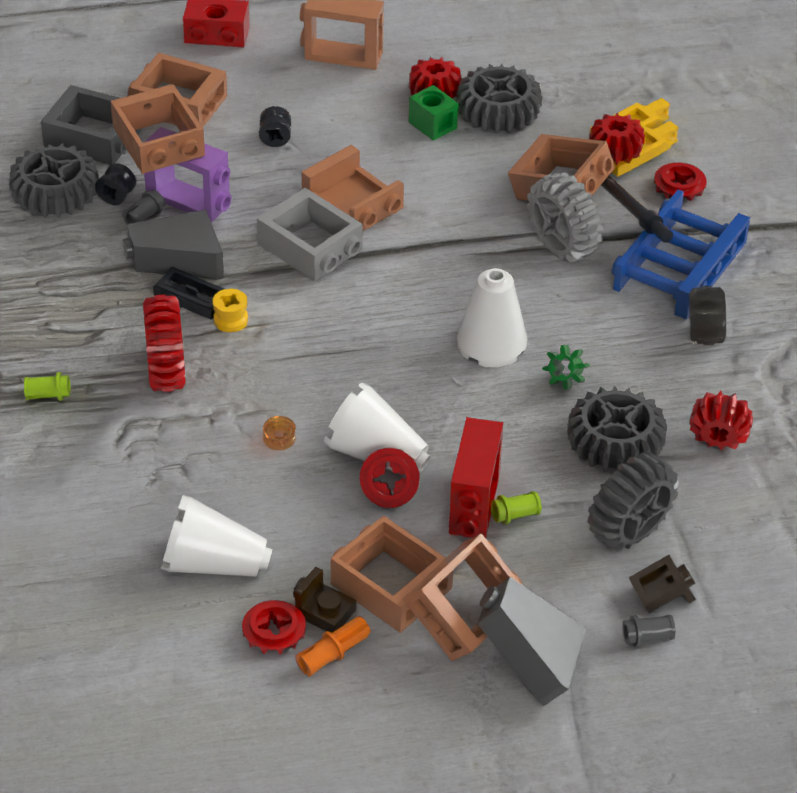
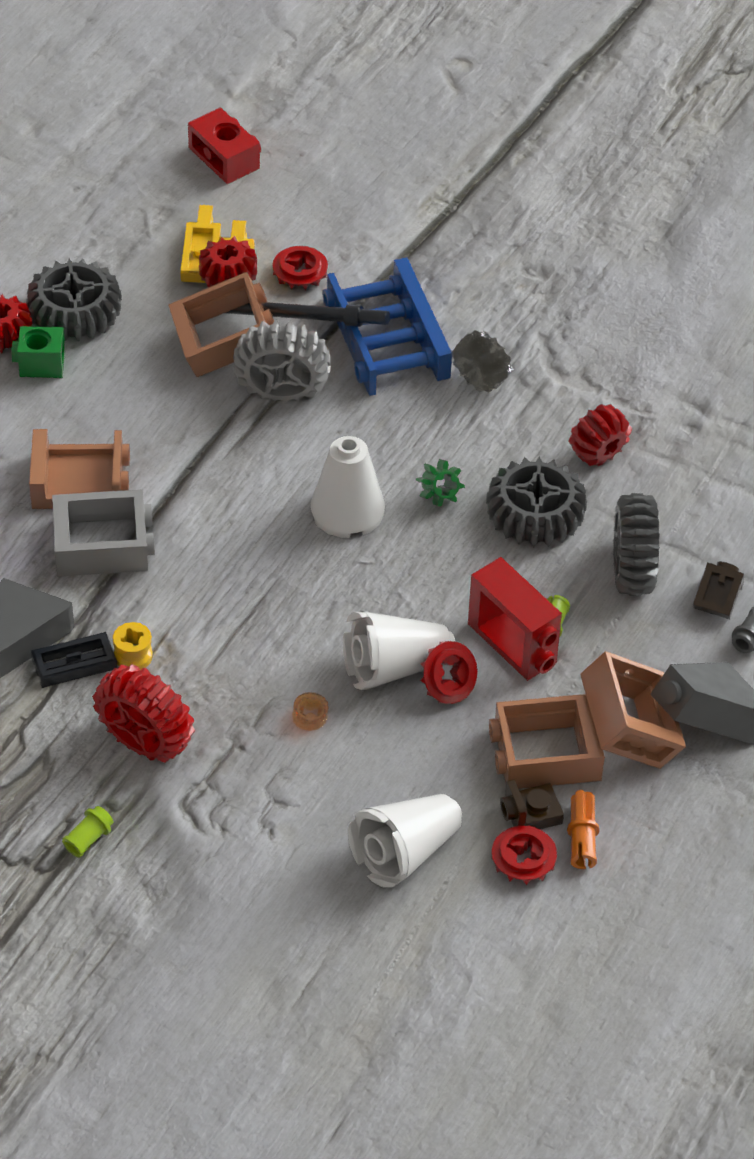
camera: 50 degrees left, 5 degrees up
(738, 77) = (224, 145): none -> red brick

